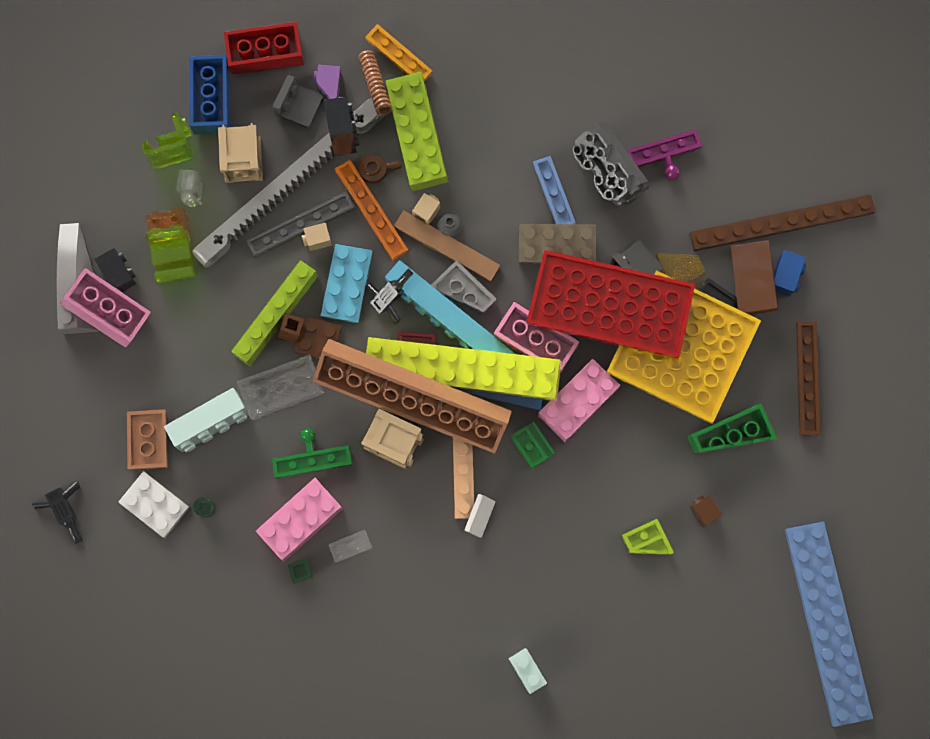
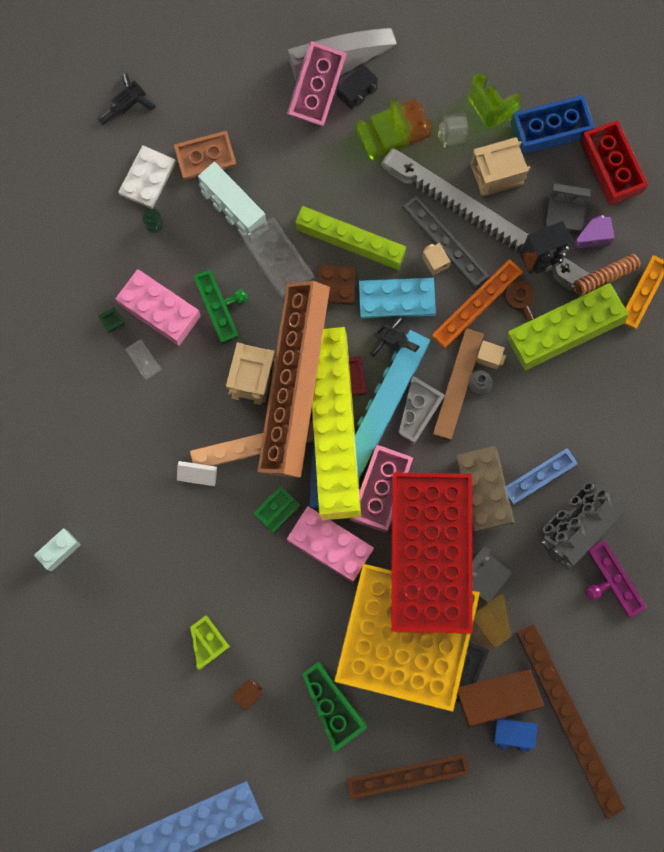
camera: 80 degrees right, 0 degrees up
(290, 328) = (338, 254): reddish brown brick -> none

